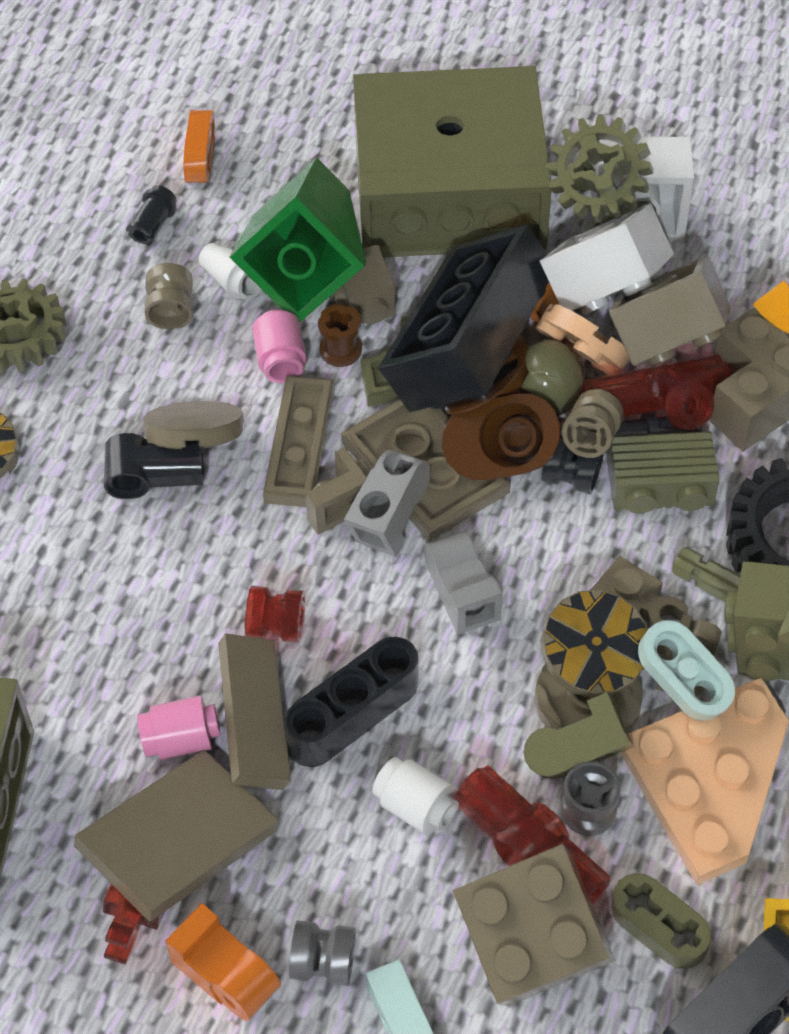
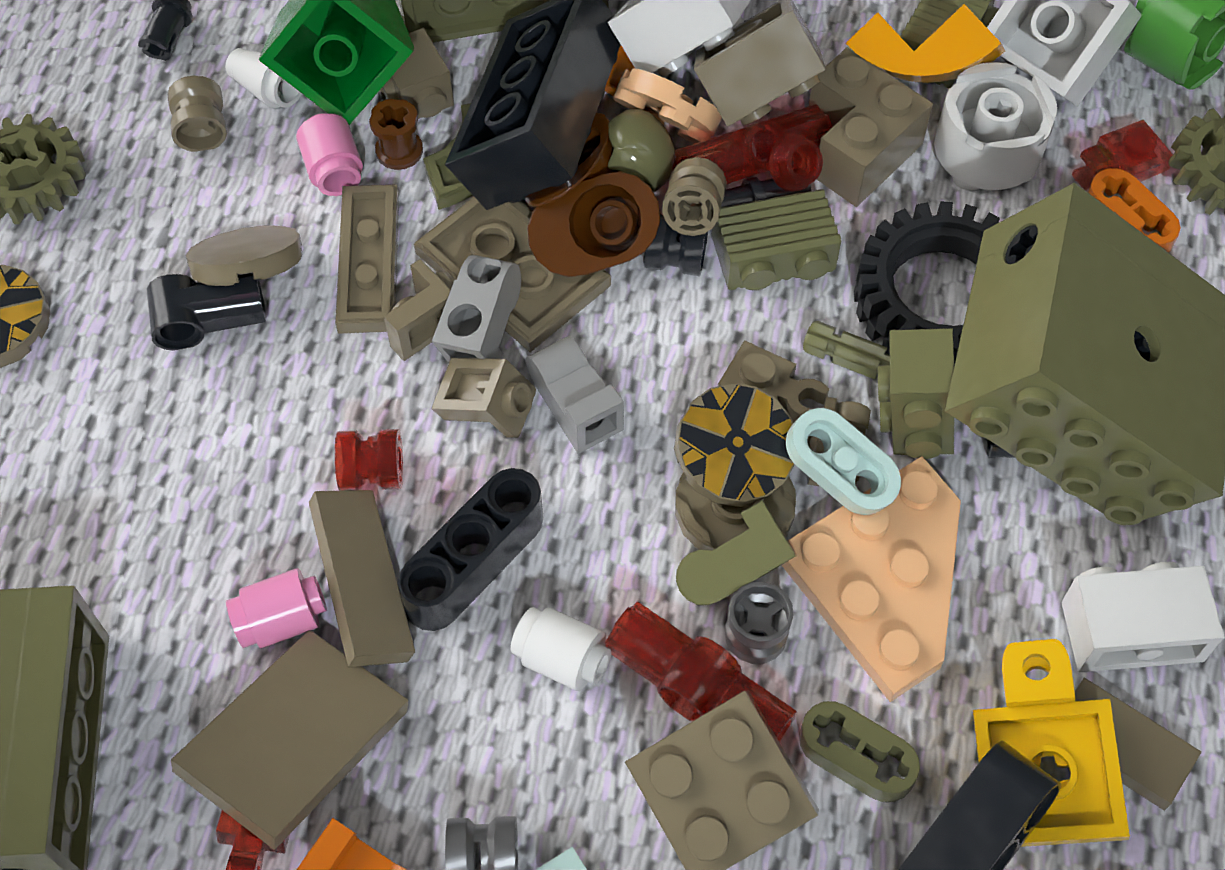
camera: 10 degrees left, 5 degrees up
(384, 570) = (485, 393): none -> dark tan bracket

